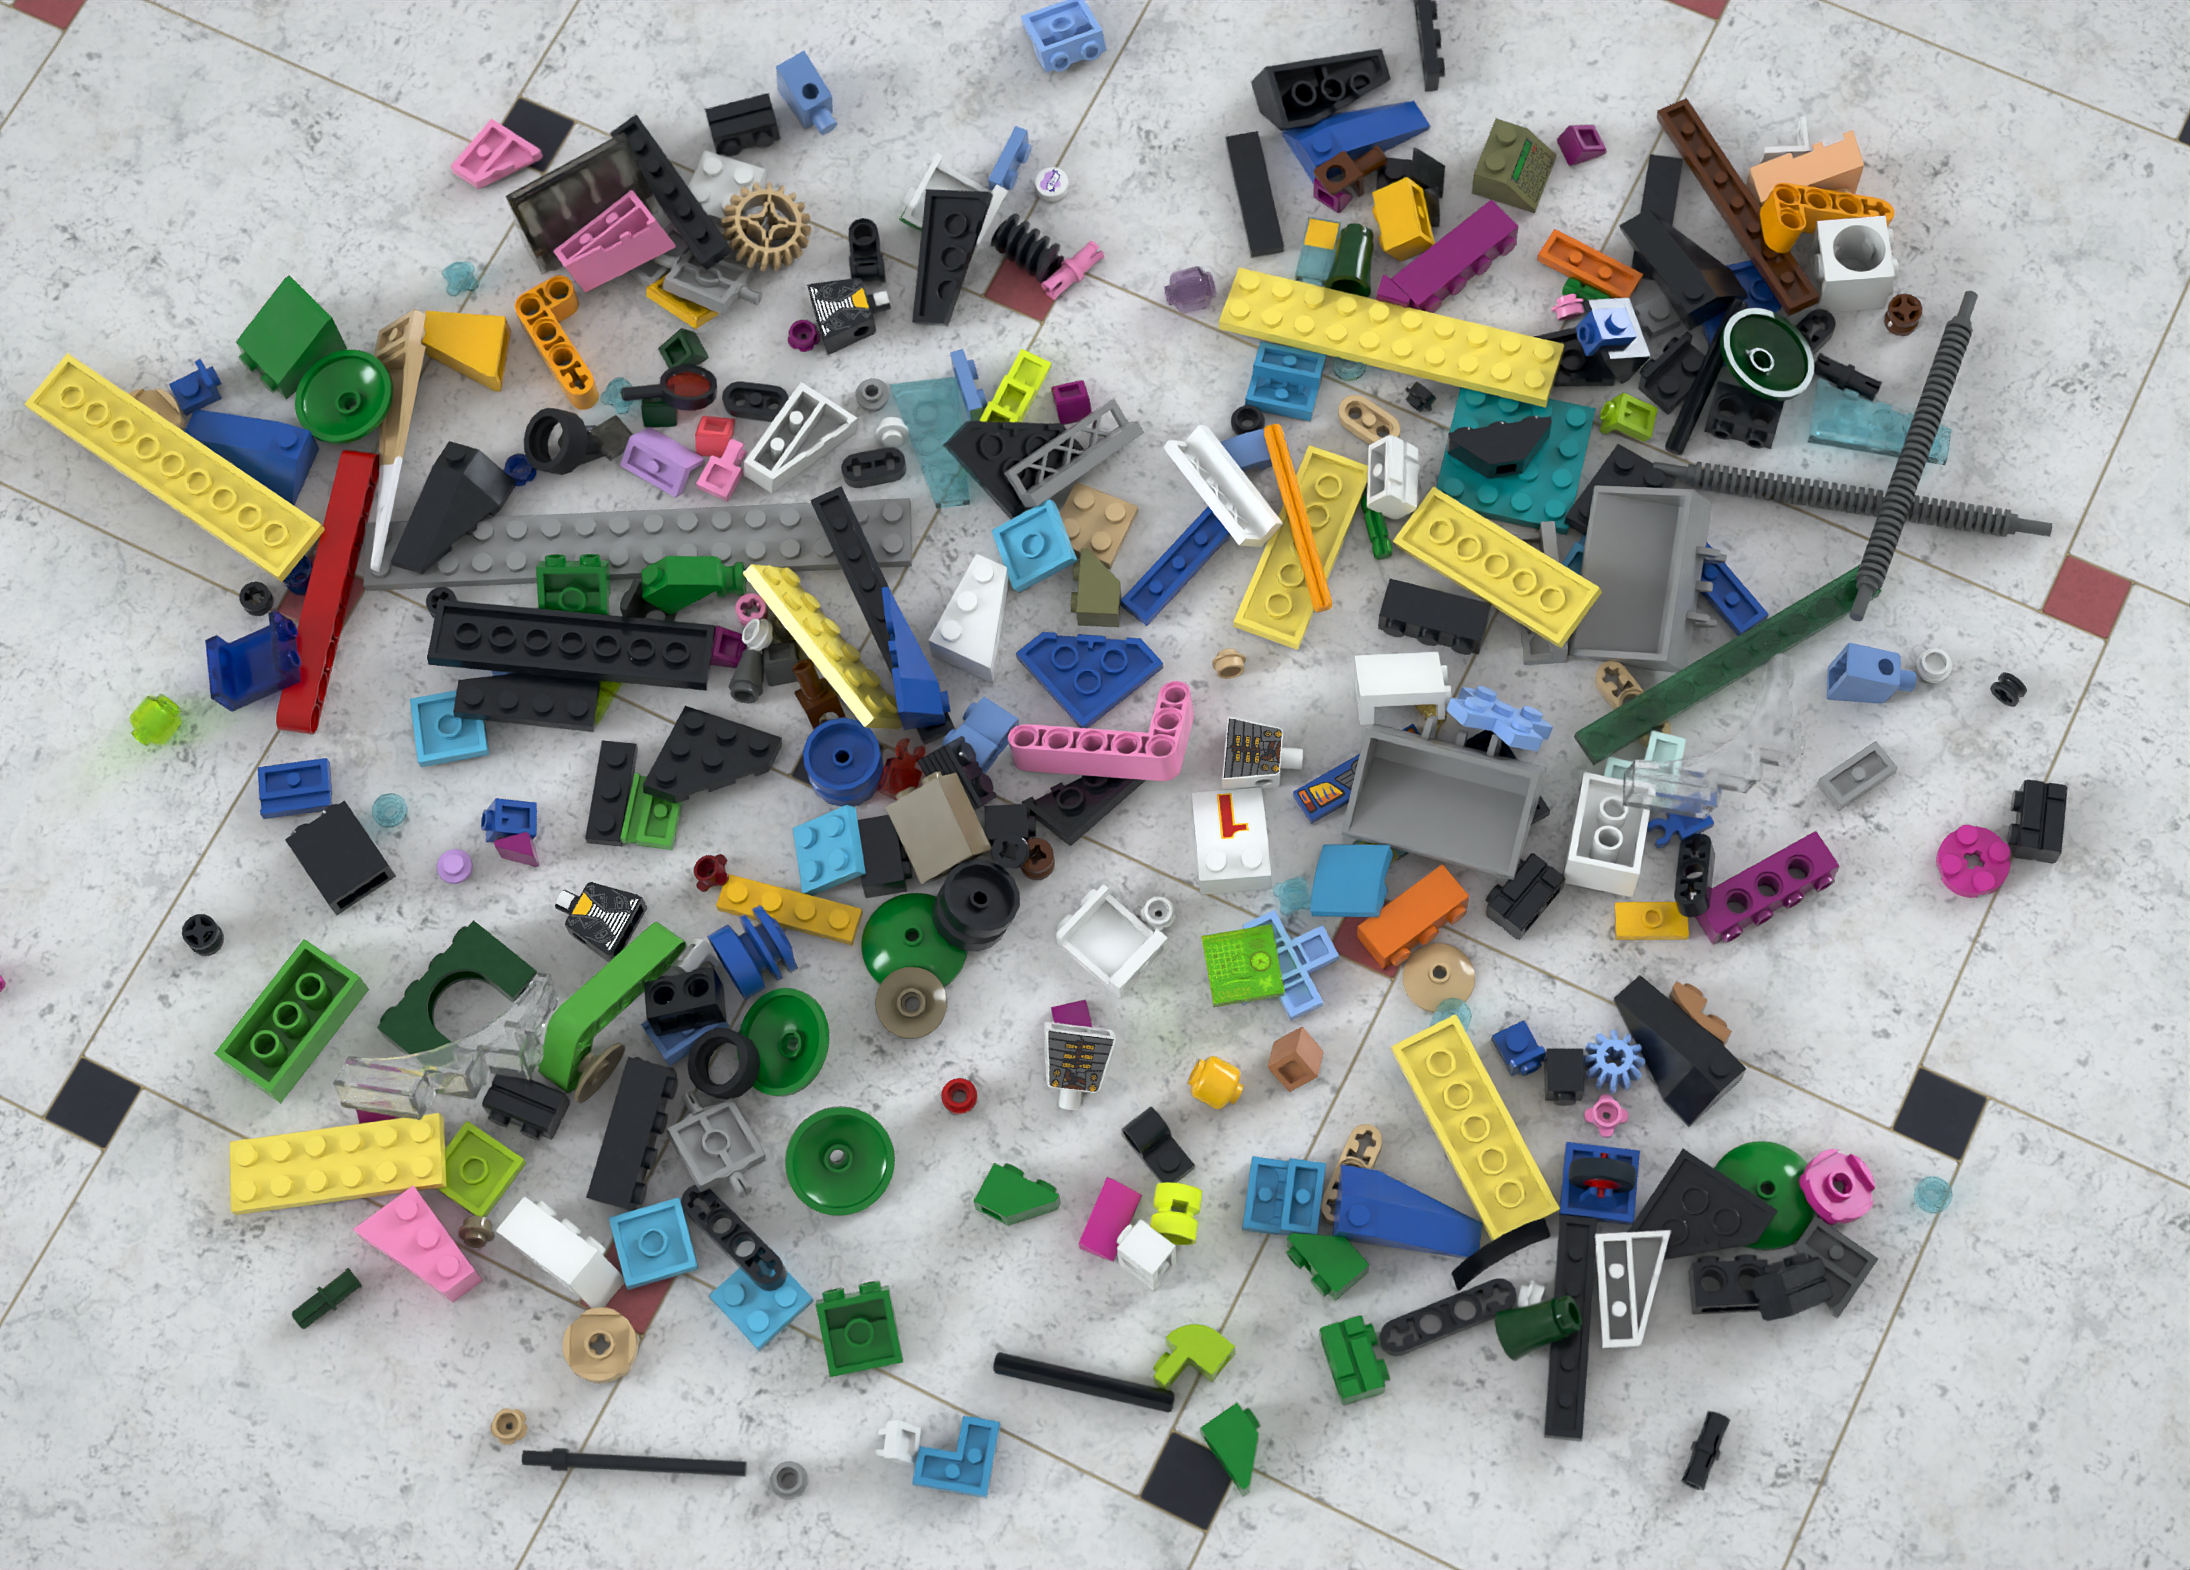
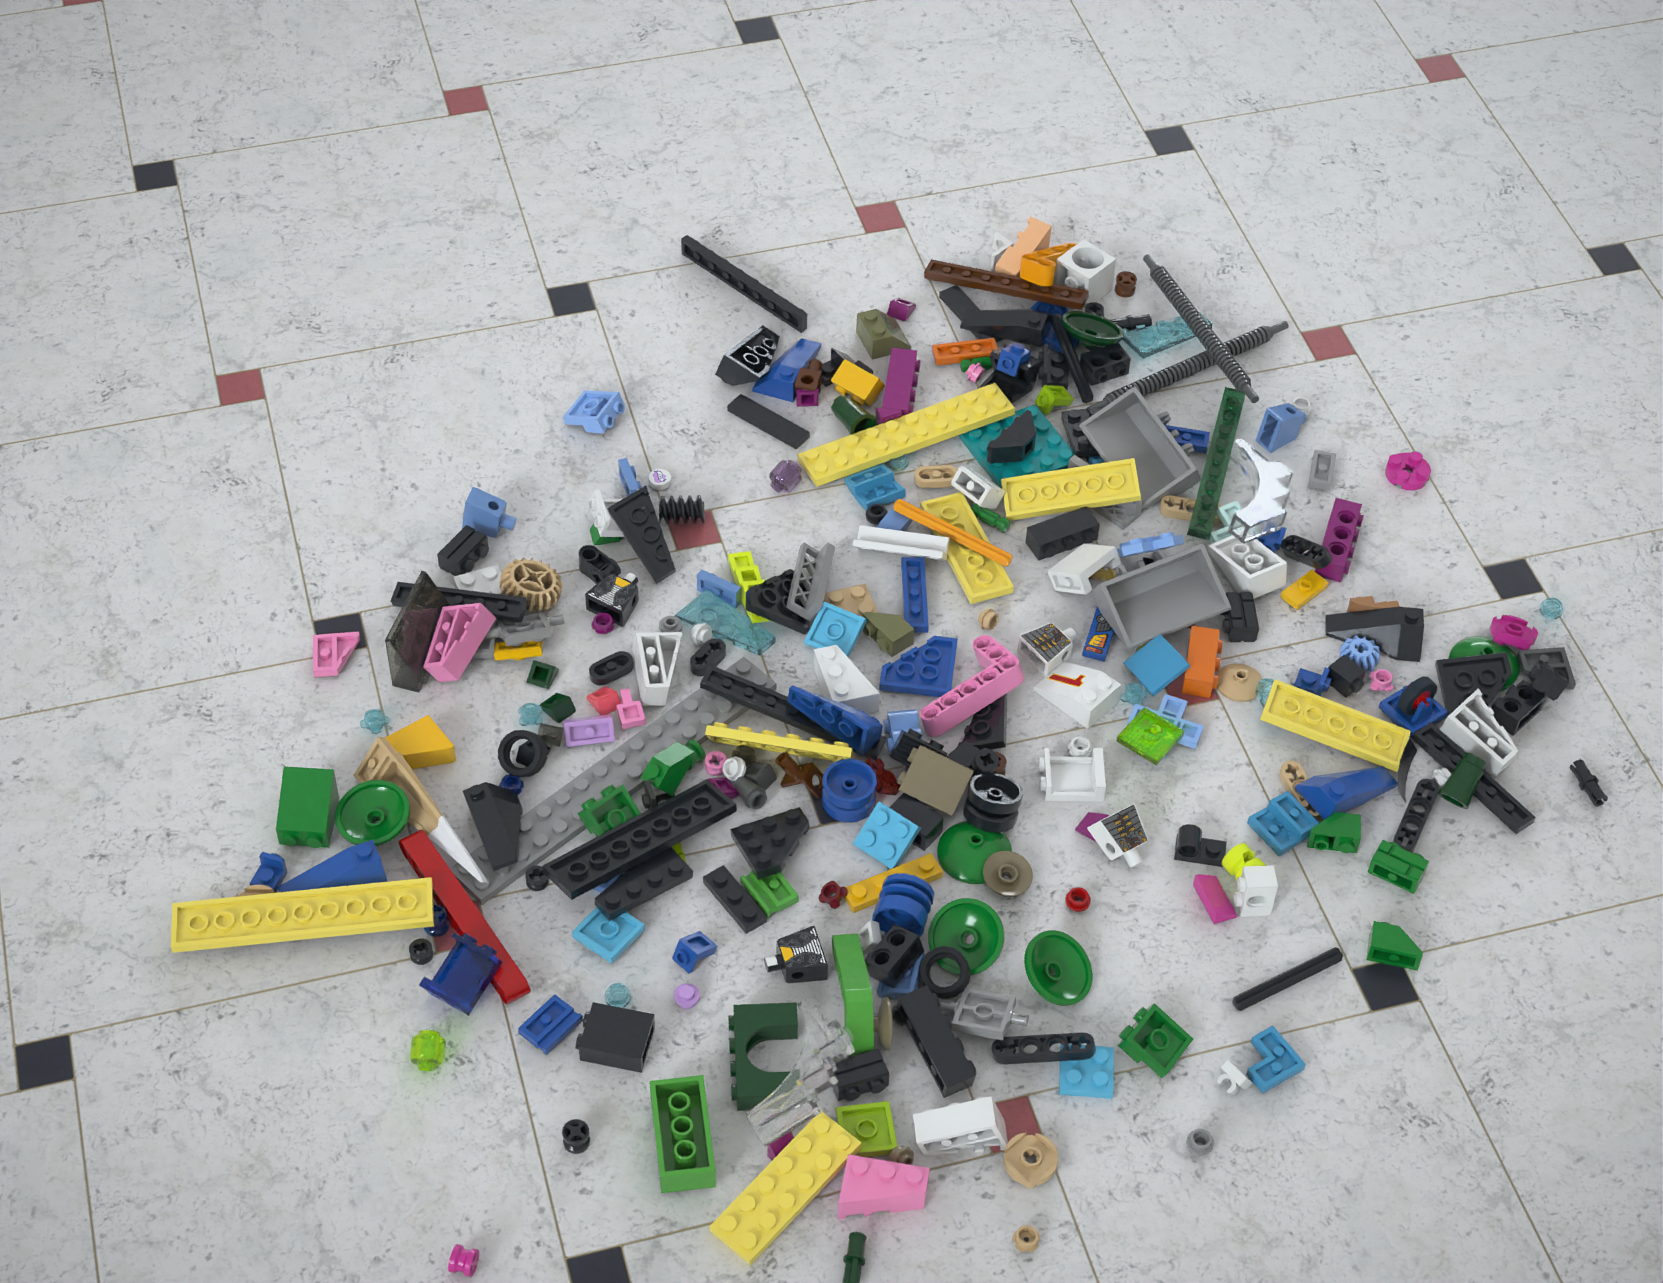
camera: 50 degrees left, 20 degrees down
(518, 849) = (716, 959): magenta slope -> none
(559, 348) = (466, 714): light orange beam -> none
(561, 1459) = (1074, 1230): black bar -> none
(653, 1243) = (1006, 1084): medium azure plate -> none
(679, 387) = (563, 686): black piece -> none
(1012, 1197) = (1158, 921): green slope -> none
(1071, 401) = (777, 562): magenta slope -> none
(1072, 270) = (713, 507): bright pink pin -> none
(1196, 1346) = (1324, 918): lime brick -> none
(1215, 1082) = (1194, 797): yellow head -> none
(1295, 1059) = (1219, 760): nougat panel -> none
(1317, 250) = (827, 424): clear light blue tile -> none
(1420, 397) = (948, 451): black plate -> none
(2008, 689) = (1343, 399): black bush -> none
(2038, 821) = (1417, 434): black brick -> none

